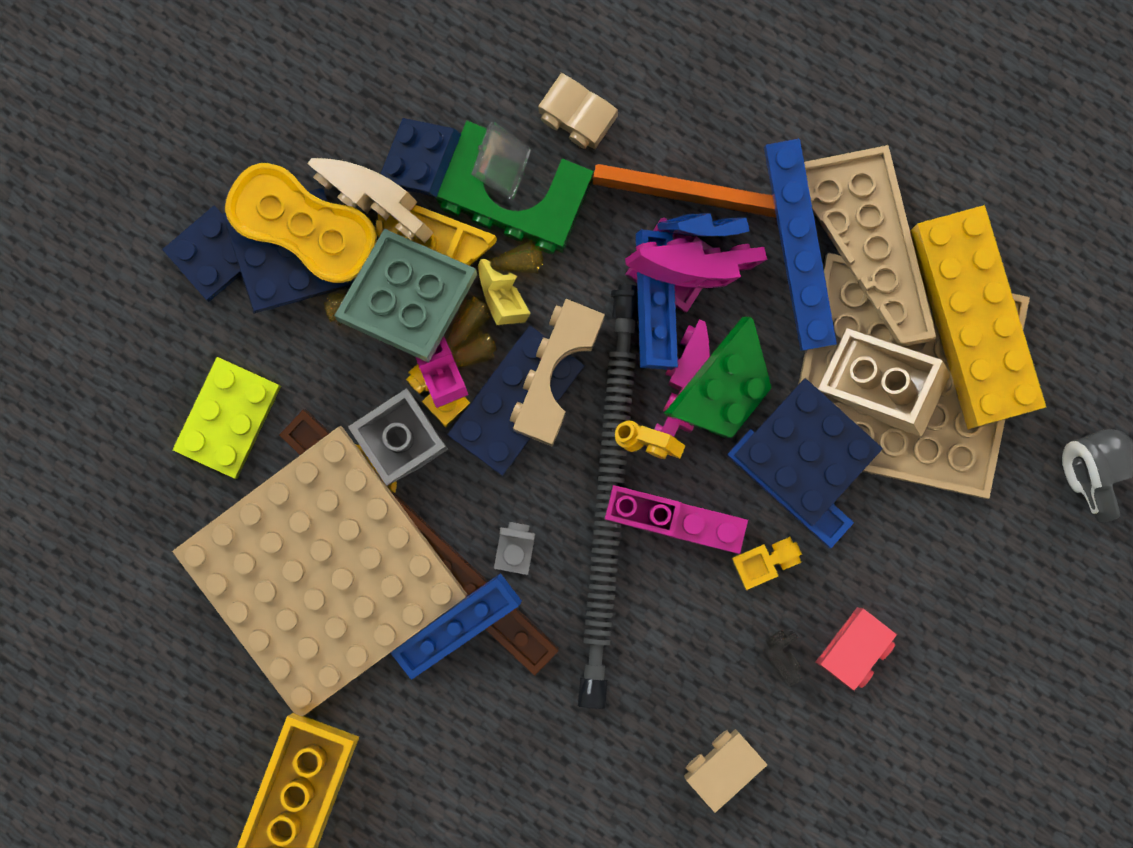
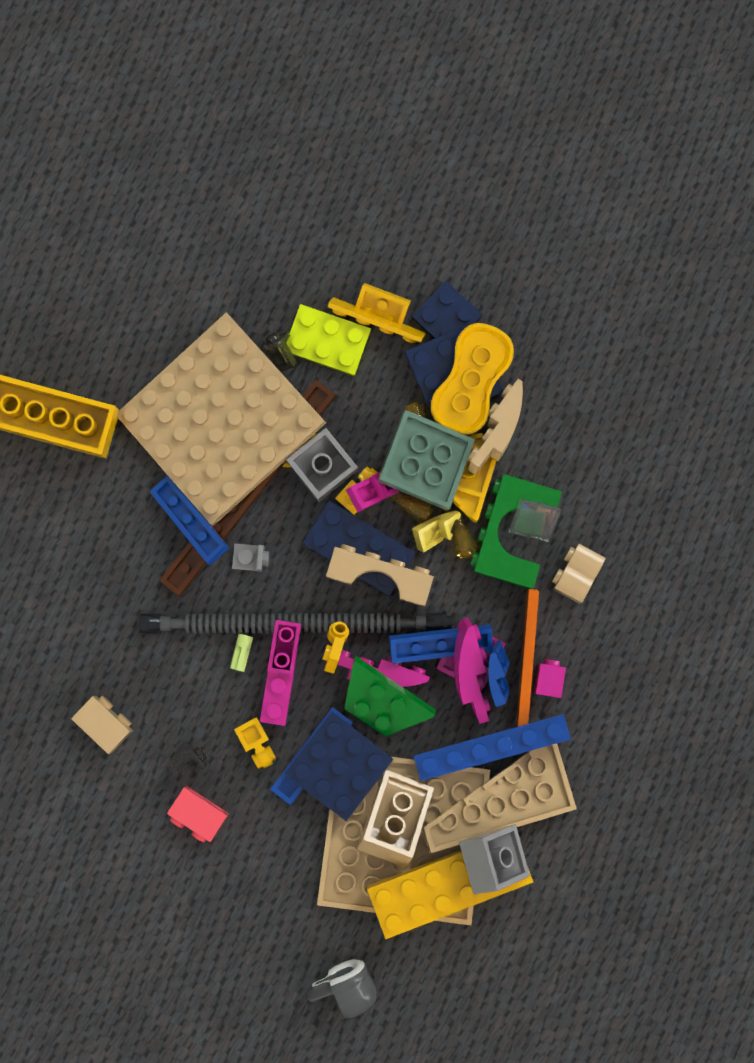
camera: 80 degrees right, 0 degrees up
(191, 341) = (380, 309): none -> yellow bracket
(233, 484) = (278, 351): none -> clear smoke bracket
(420, 156) = (532, 460): dark blue plate -> none
(475, 350) = (393, 515): clear yellow cone -> none
(643, 571) = (241, 652): none -> yellowish green piece
(714, 163) = (549, 679): none -> dark pink brick
(955, 250) = (494, 859): none -> light grey slope

